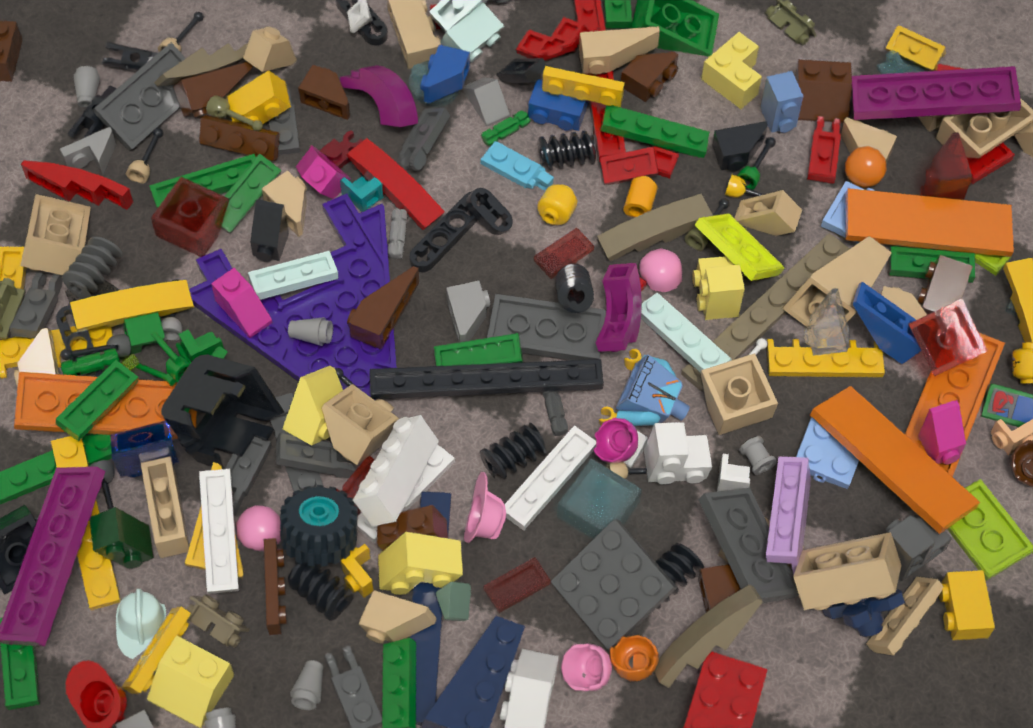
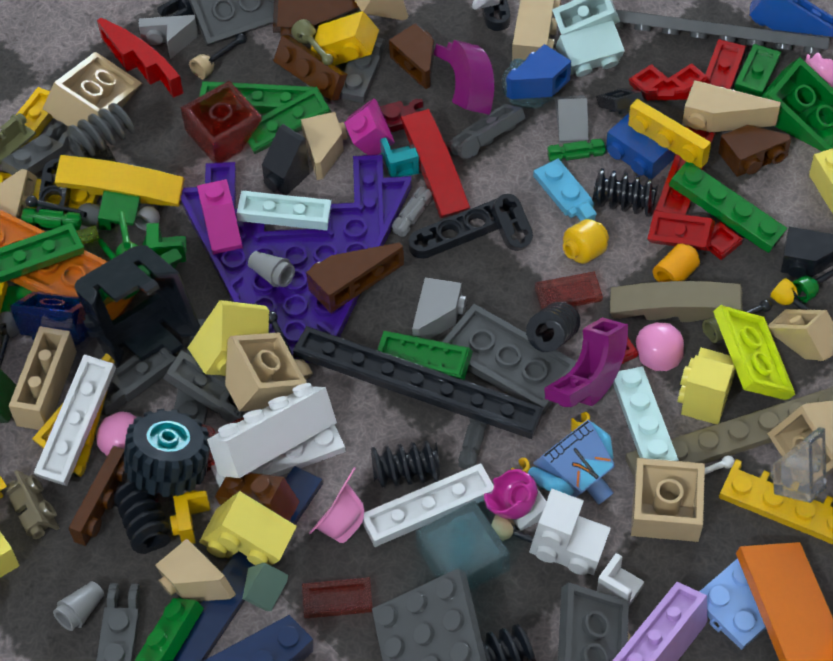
camera: 30 degrees right, 5 degrees down
(758, 455) = (658, 572): light grey bush -> none

